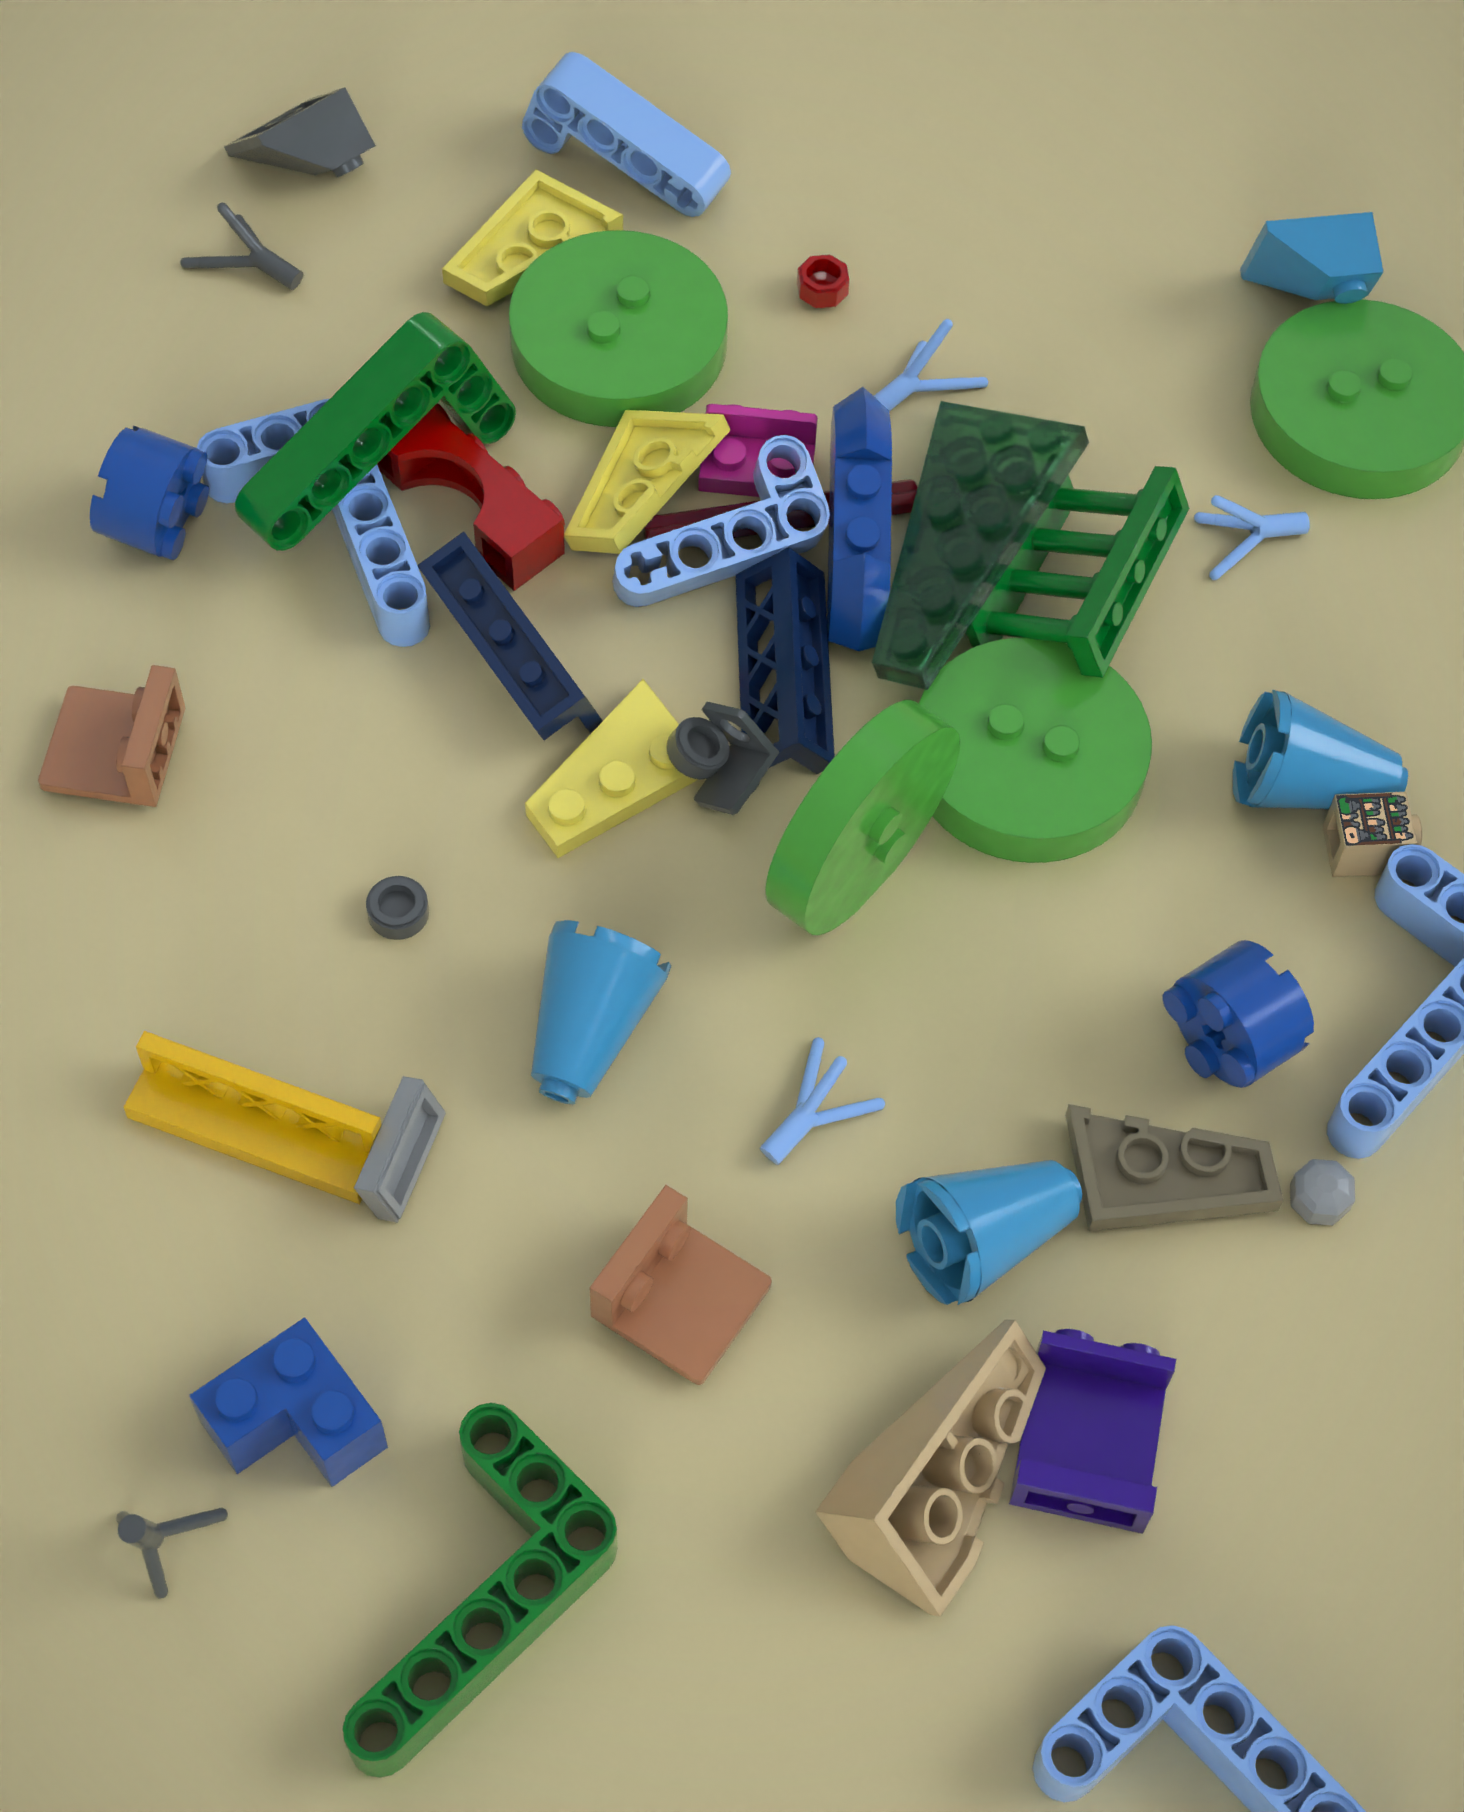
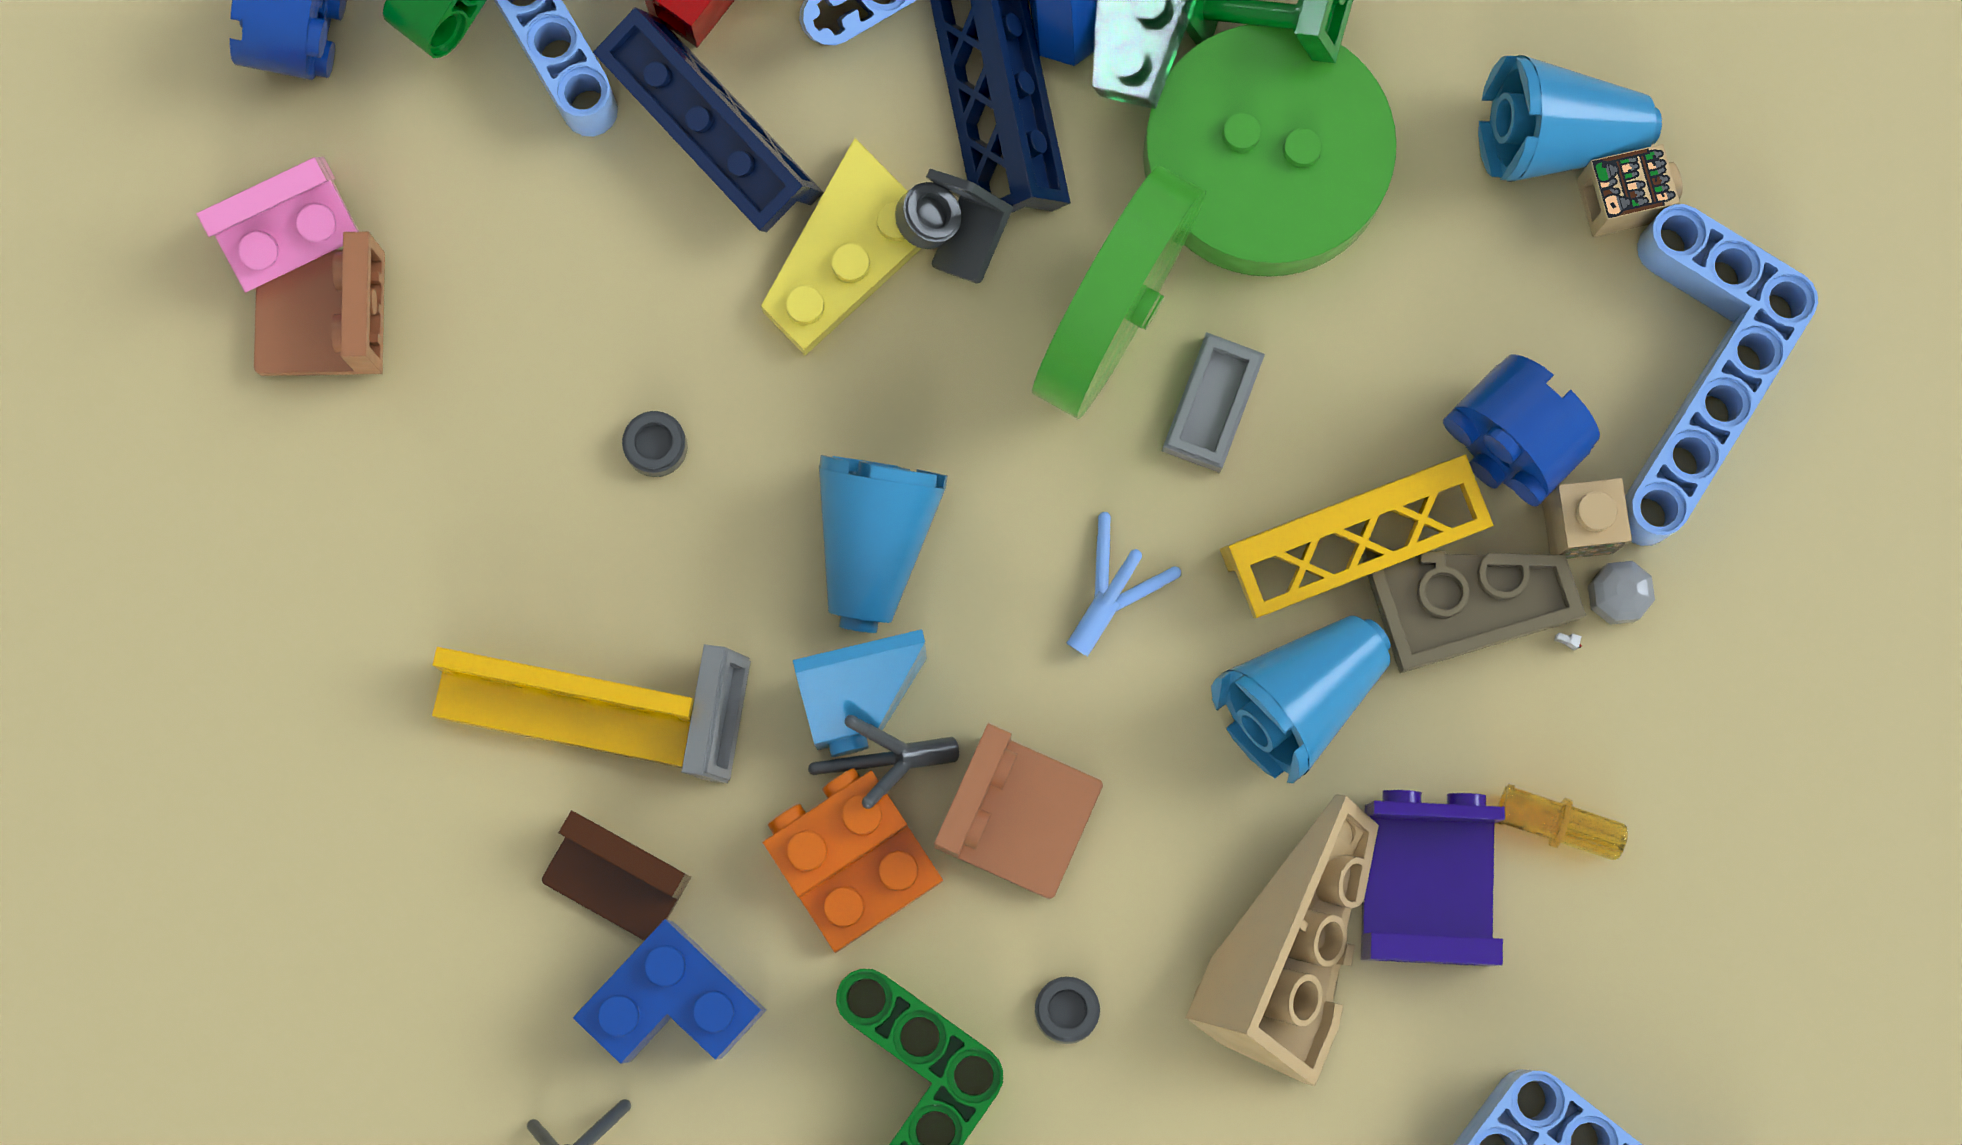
camera: 10 degrees left, 20 degrees up
(93, 652) = (280, 223): none -> bright pink bracket
(264, 1280) = (614, 877): none -> reddish brown panel
(504, 1309) = (849, 860): none -> orange plate
(547, 1138) = (859, 682): none -> dark azure slope
(576, 1219) = (902, 756): none -> dark grey plant
(695, 1498) = (1067, 1010): none -> dark grey tile
(941, 958) = (1213, 402): none -> light grey tile
(1062, 1072) = (1350, 512): none -> yellow fence
(1235, 1398) = (1563, 823): none -> clear yellow axle
(1263, 1229) = (1571, 641): none -> white piece
(1295, 1111) = (1587, 518): none -> tan brick

